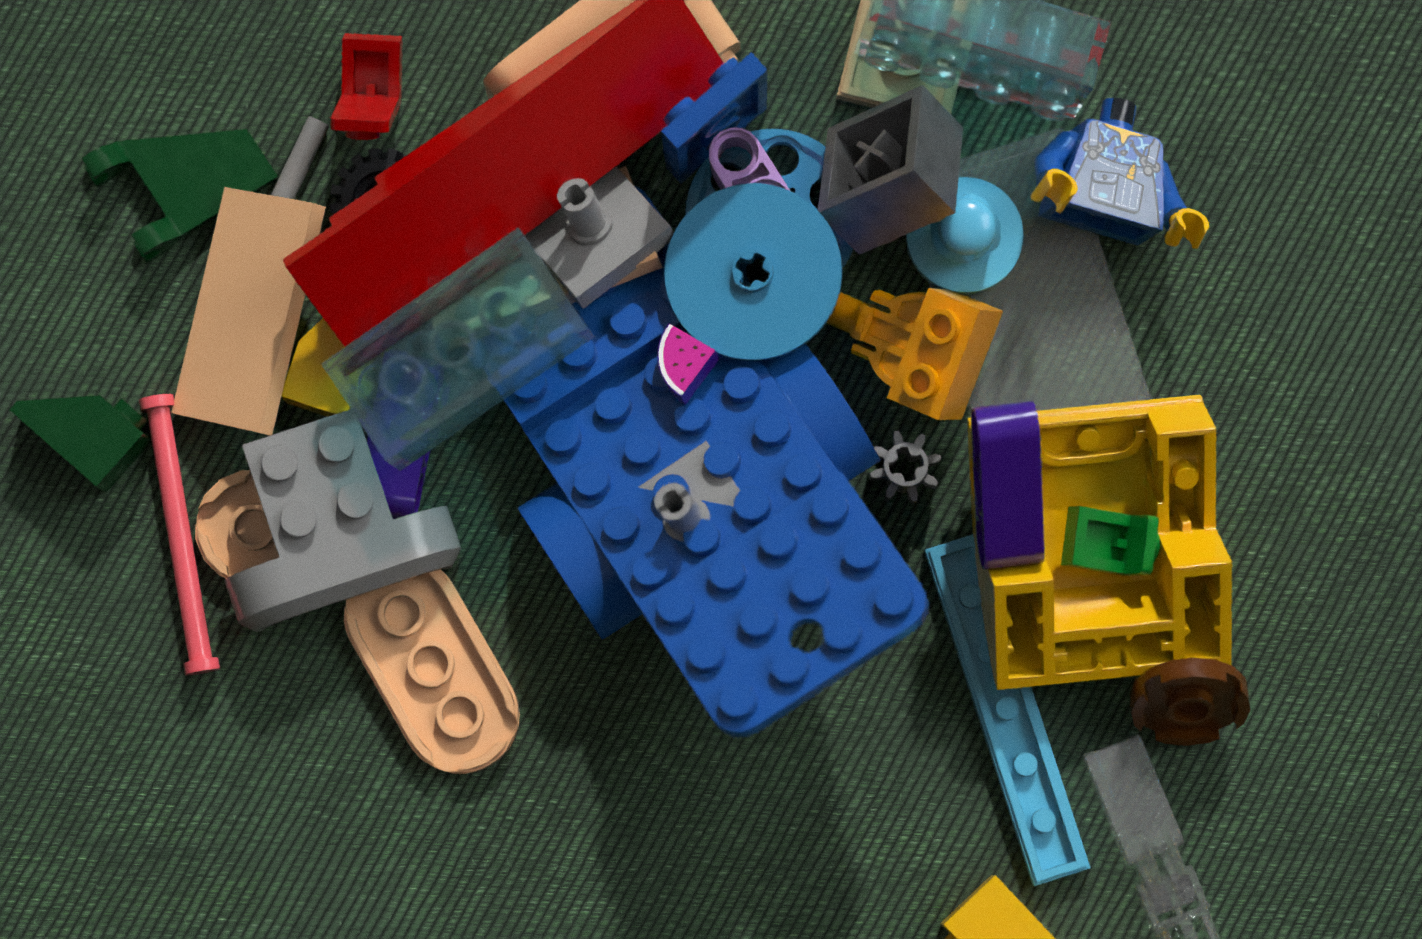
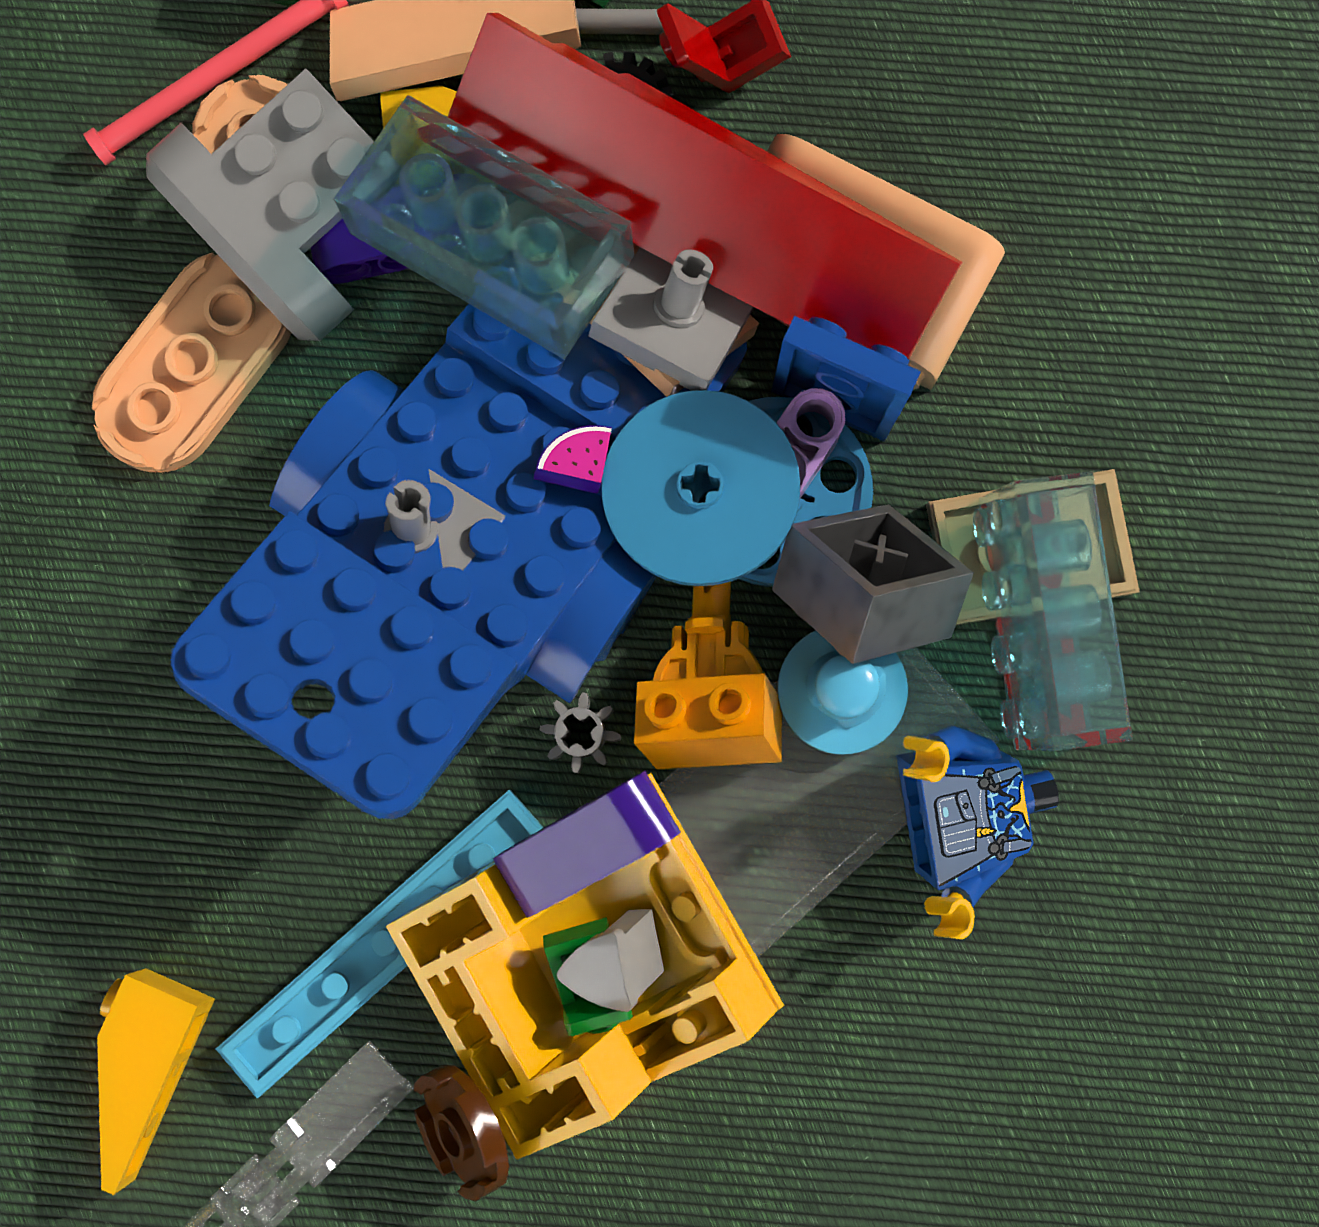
camera: 70 degrees right, 0 degrees up
(1109, 513) = (616, 963): none -> light grey tile

